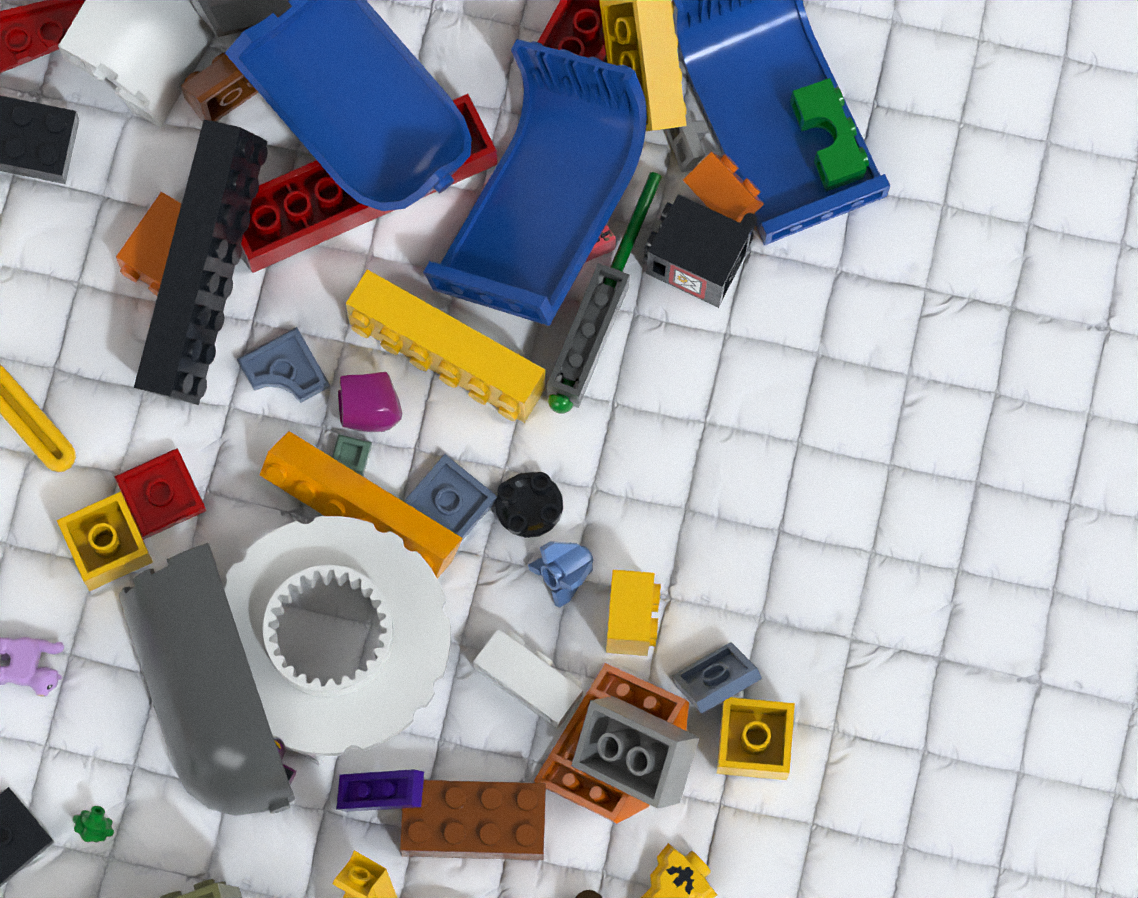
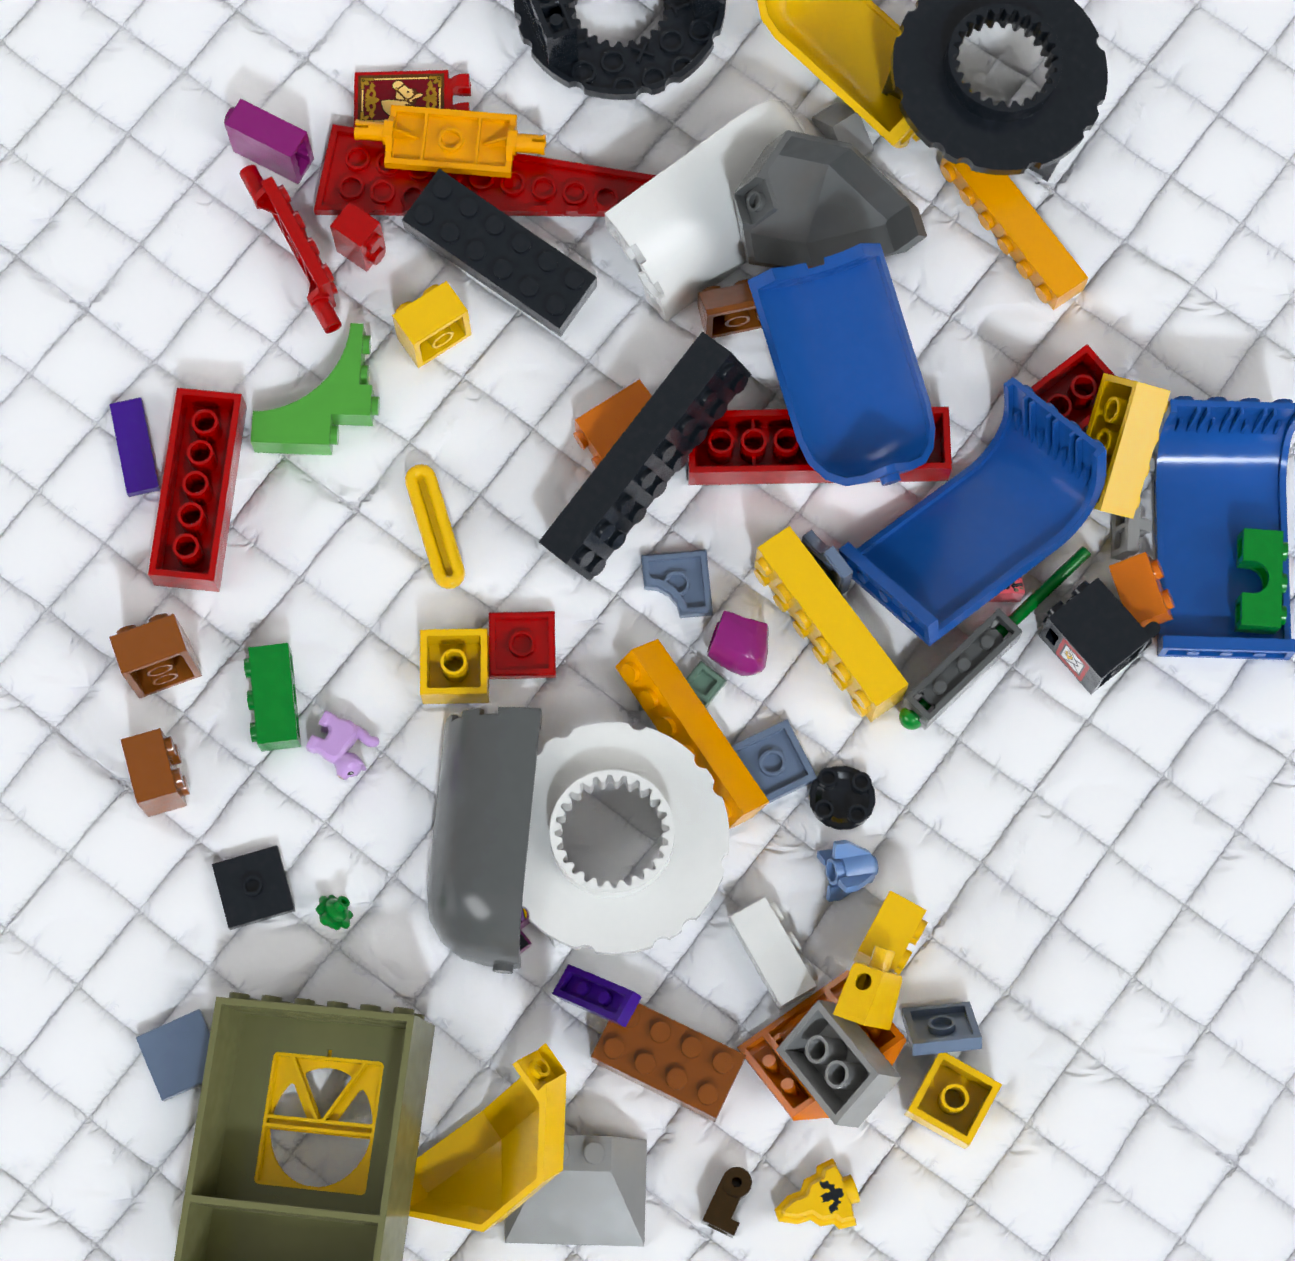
camera: 25 degrees right, 0 degrees up
(419, 286) = (829, 561): none -> sand blue tile
(636, 671) = (870, 992): none -> yellow torso

